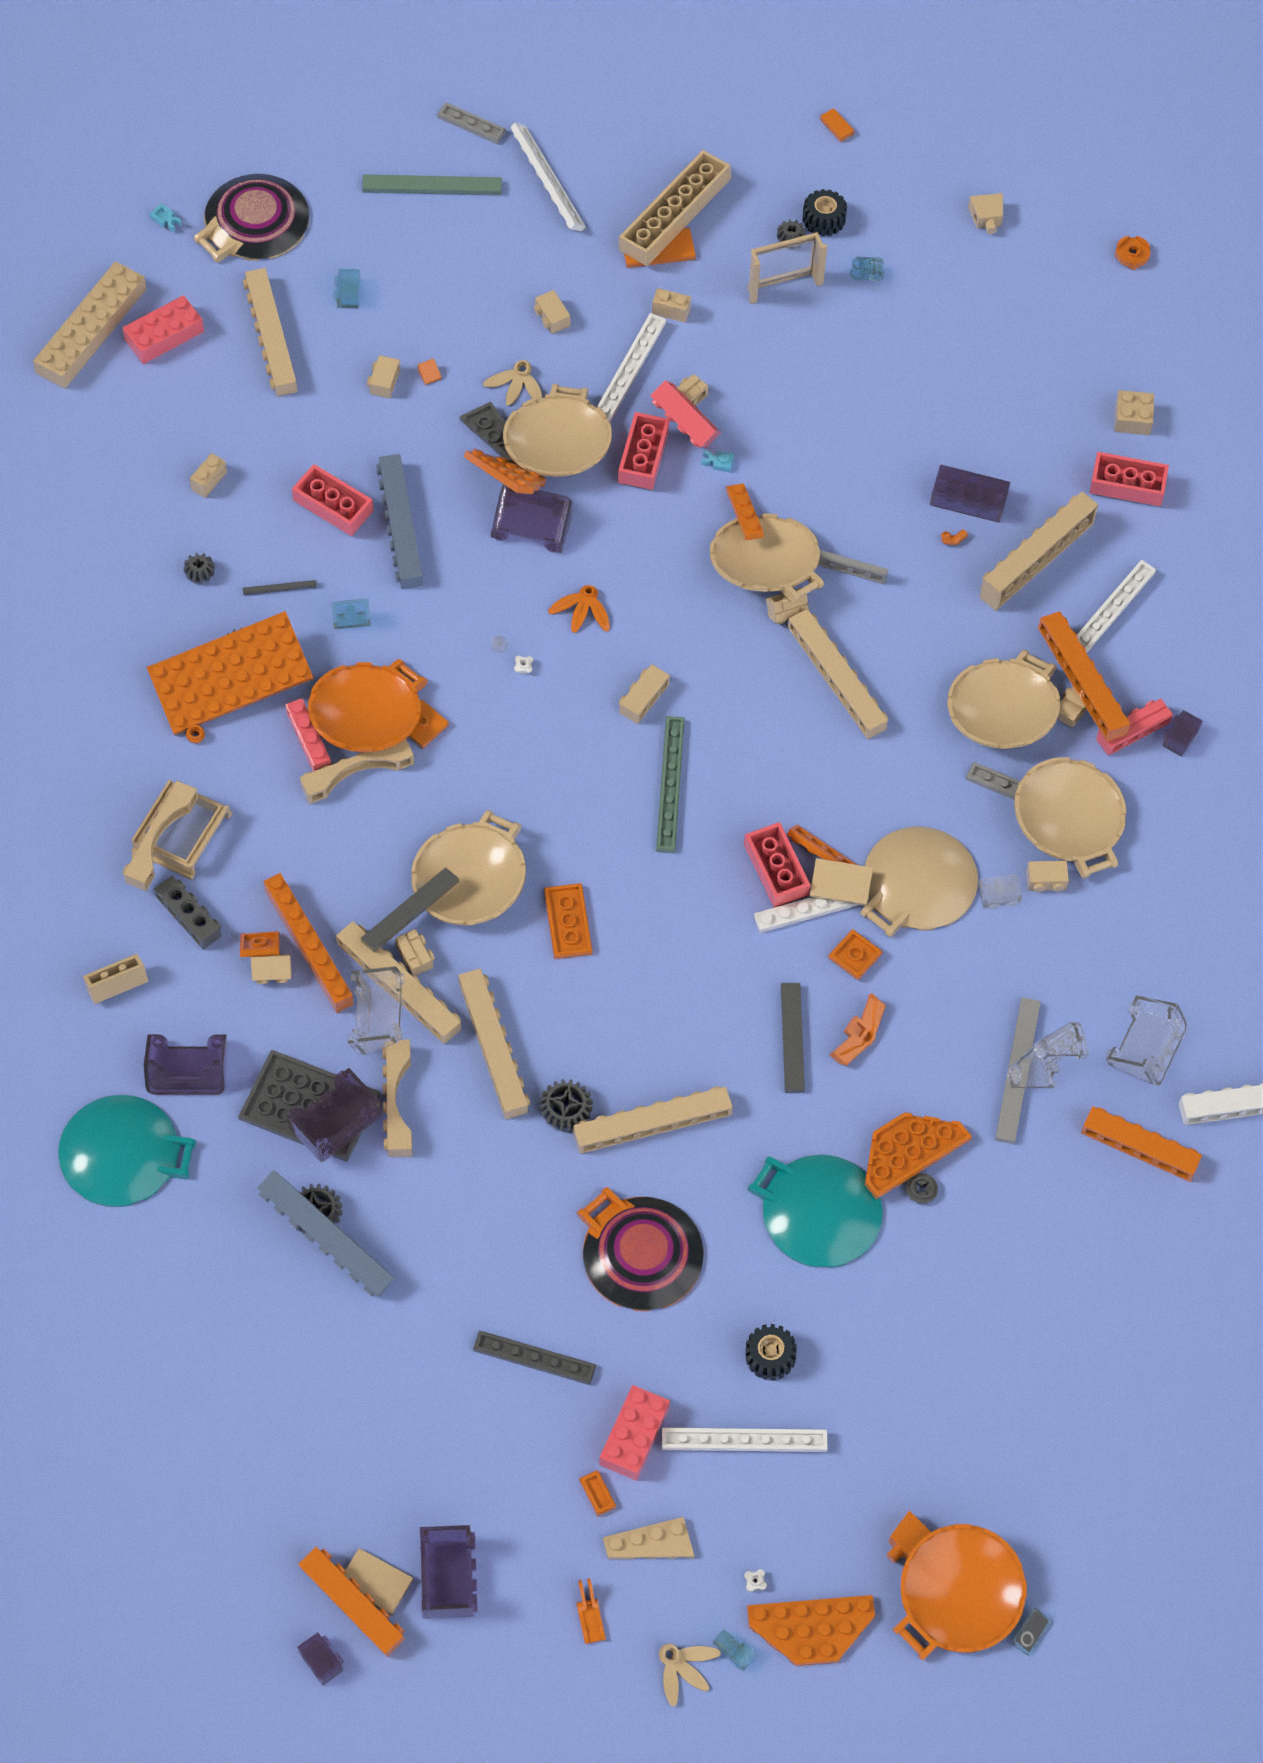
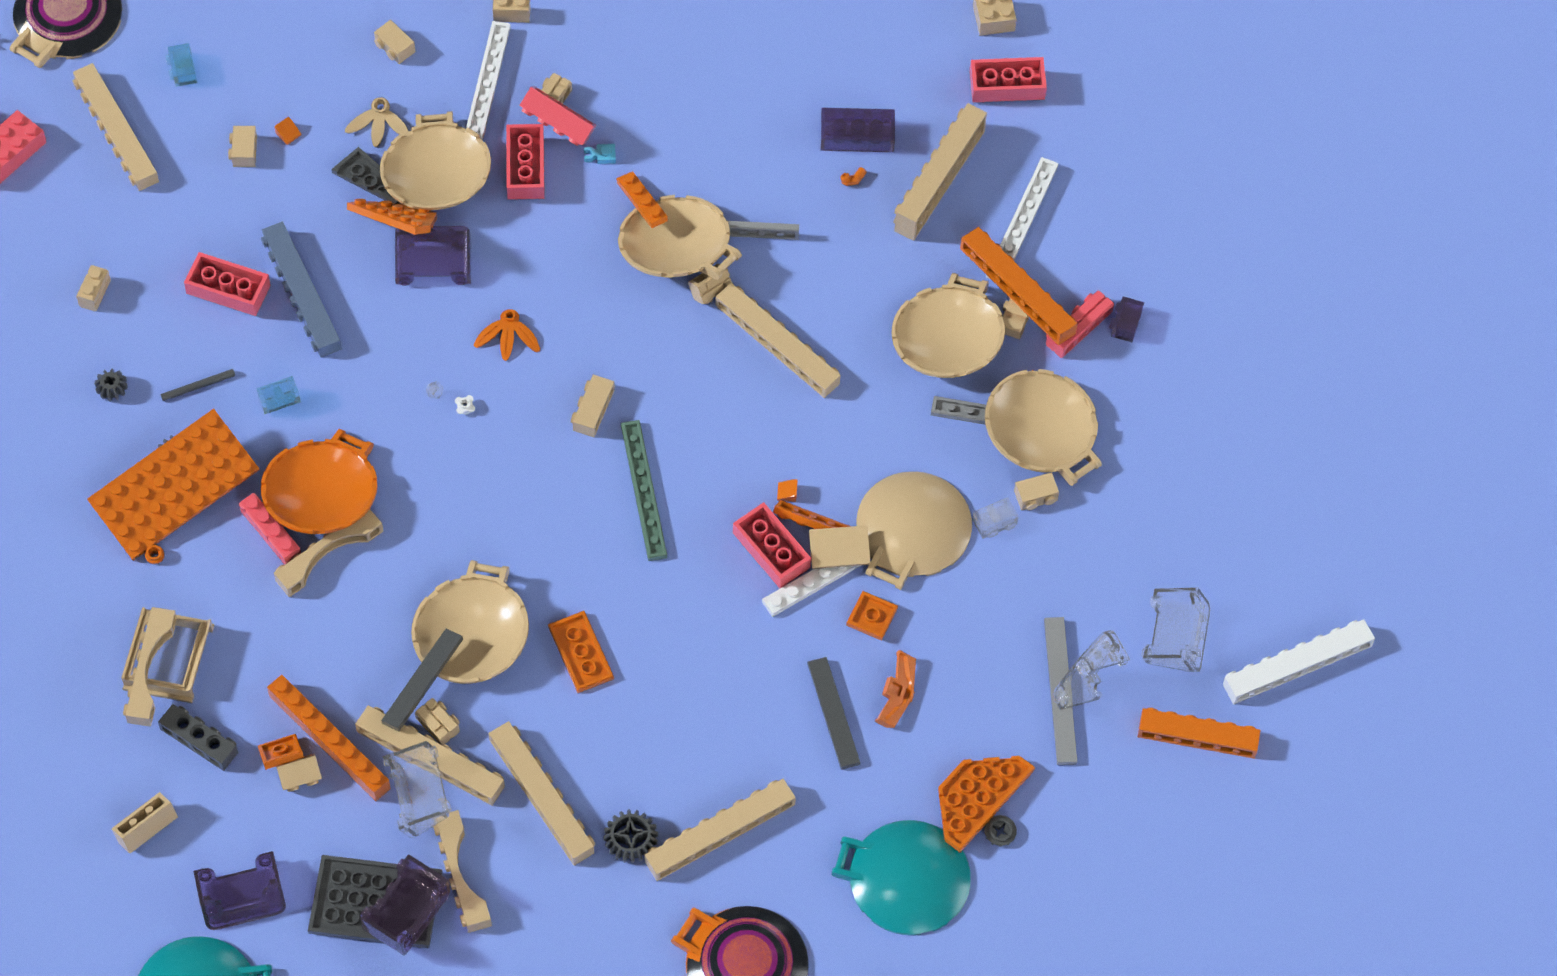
camera: 15 degrees left, 0 degrees up
(429, 726) = (388, 489): orange plate -> none
(807, 817) = (787, 490): none -> orange slope

